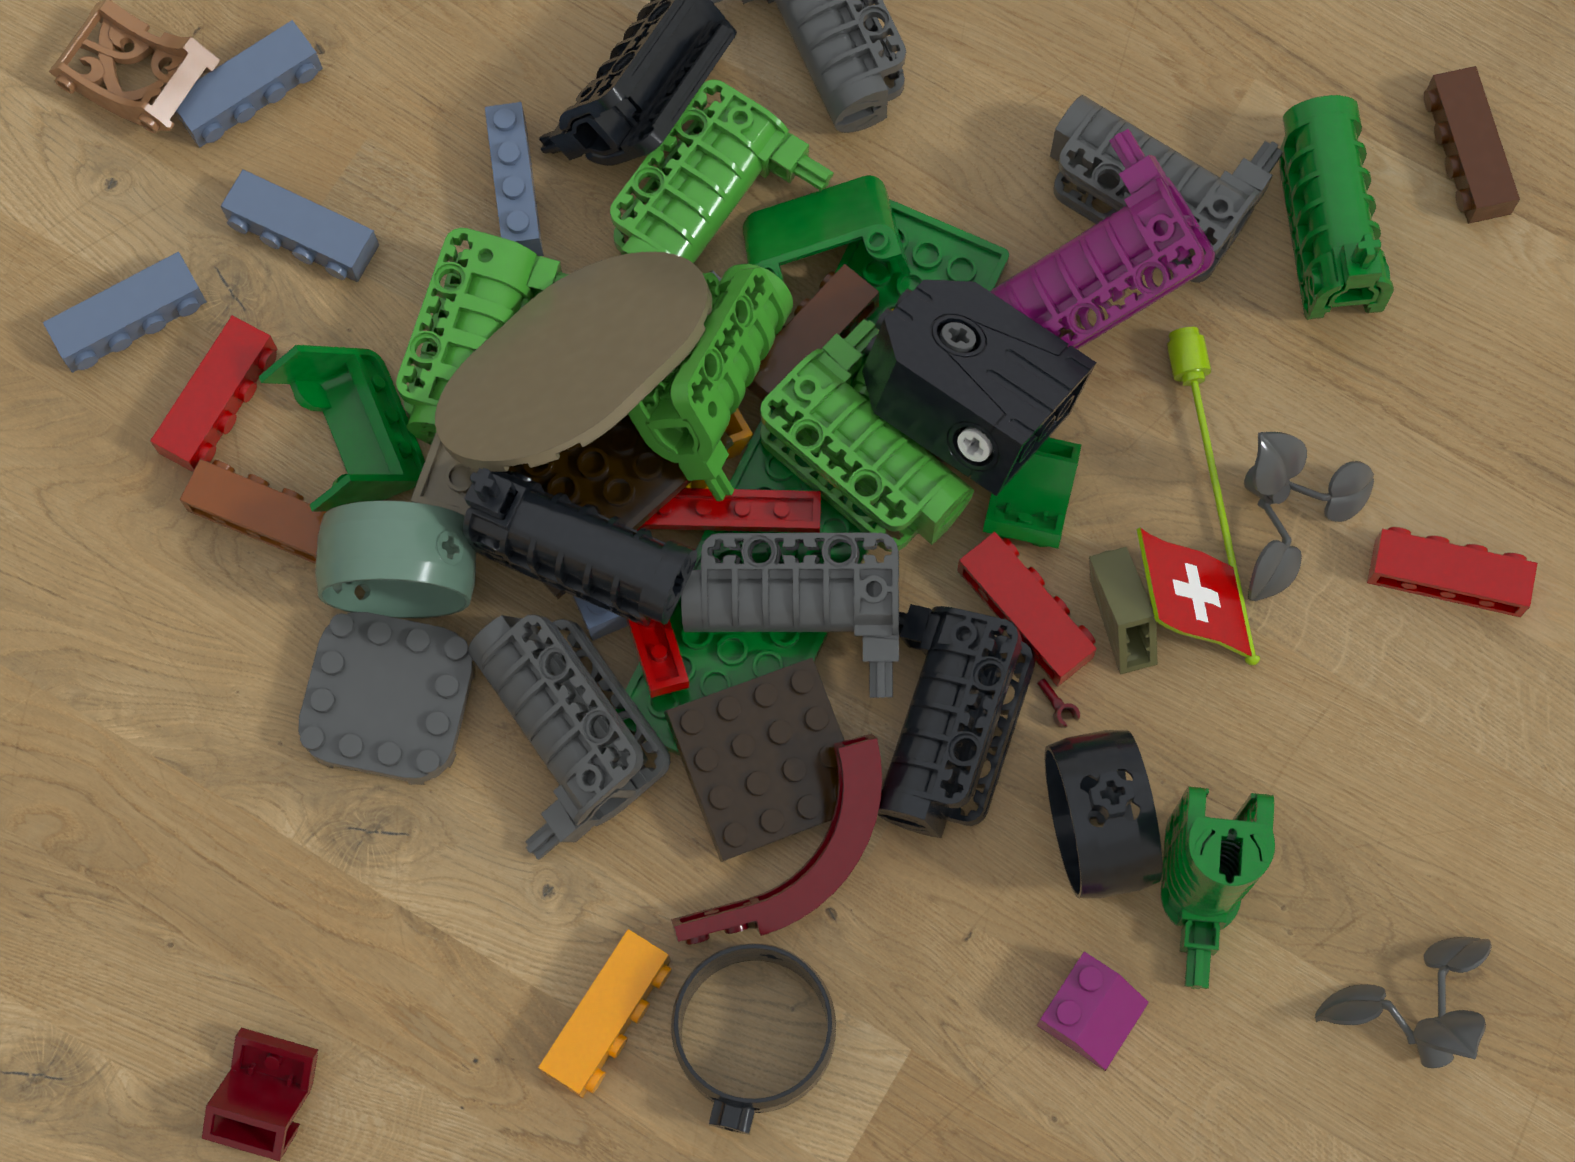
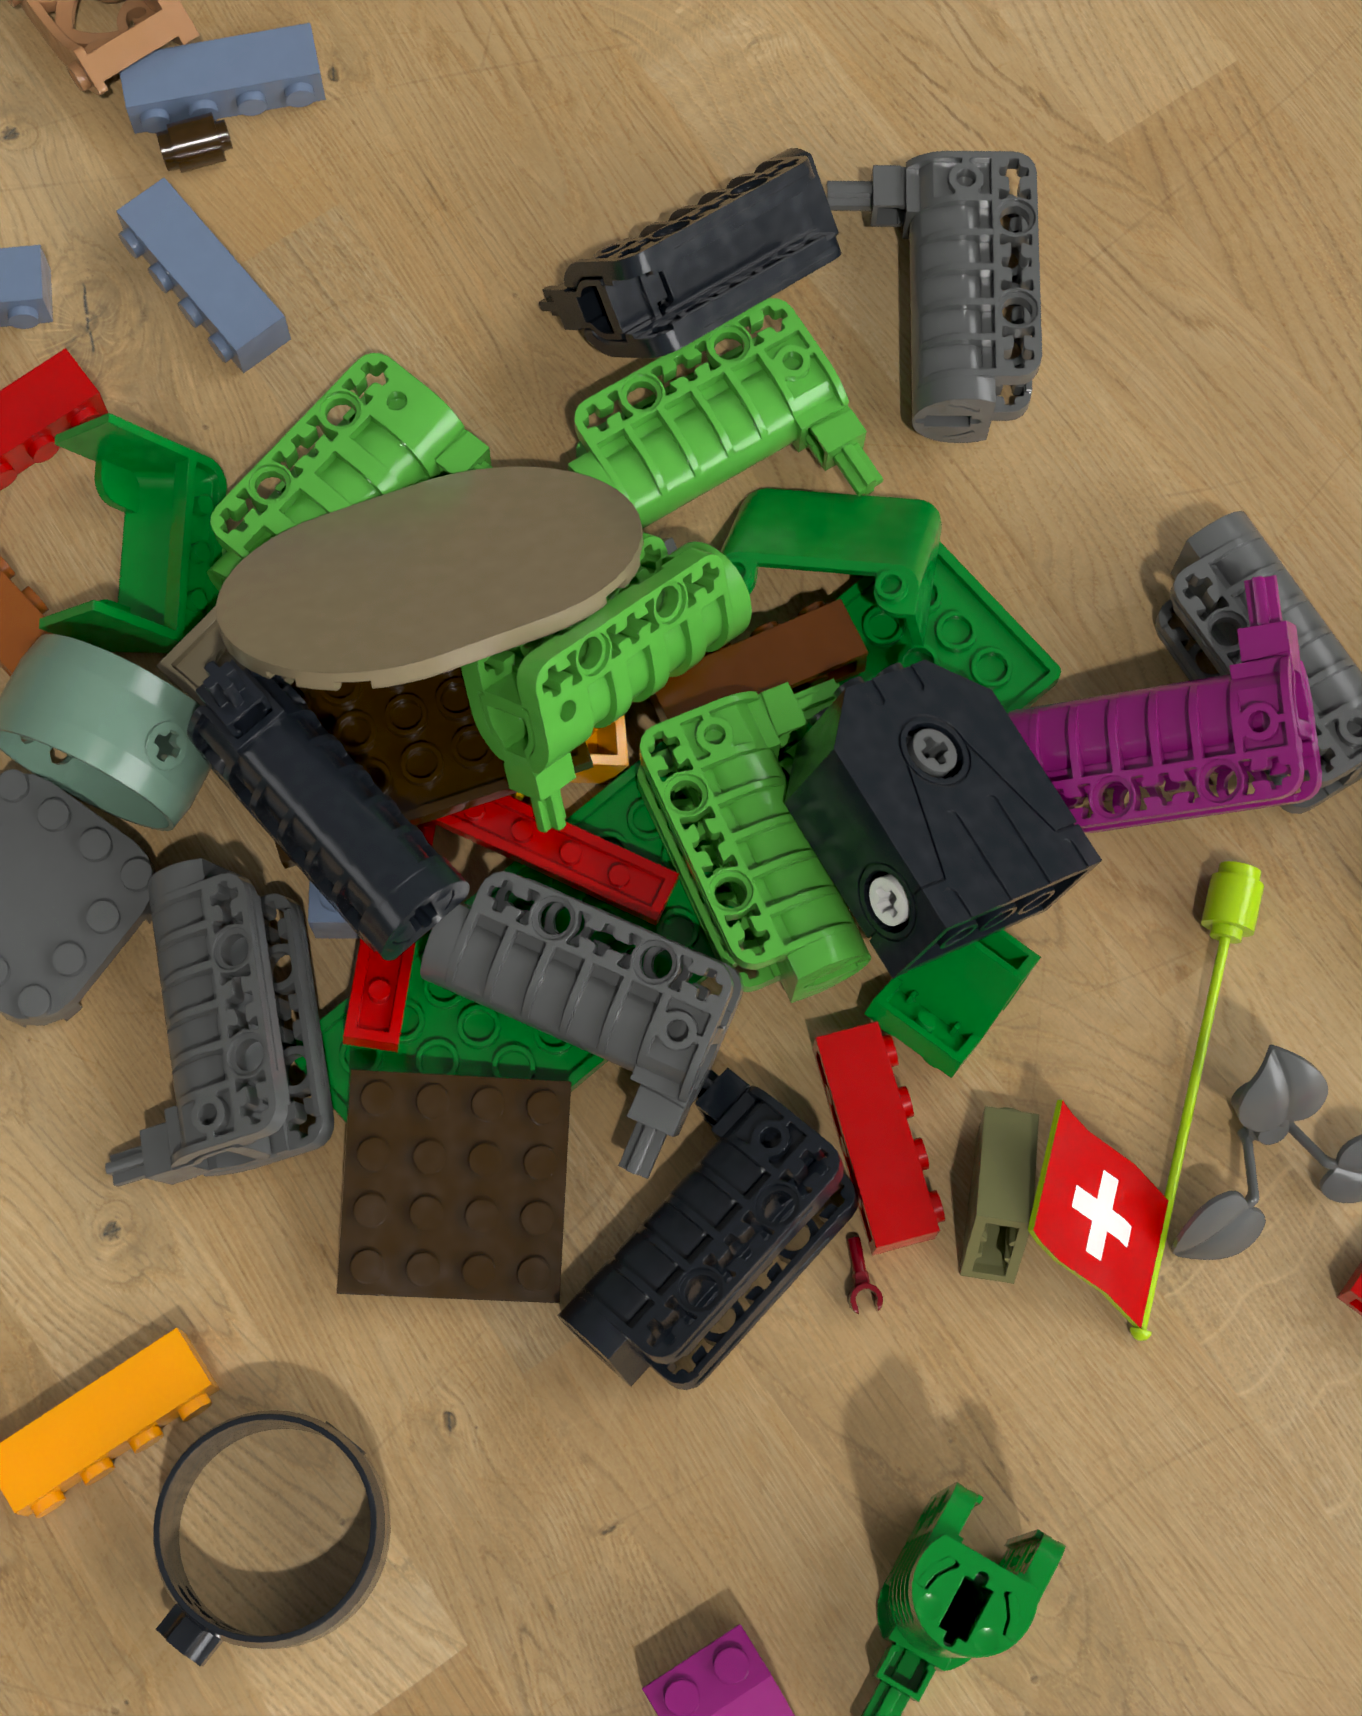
camera: 20 degrees right, 0 degrees up
(248, 136) = (194, 143): none -> dark brown brick
(513, 175) = (487, 323): sand blue brick -> none
(828, 867) = (455, 1366): dark red arch -> none
(1089, 783) = (868, 1405): black cylinder -> none

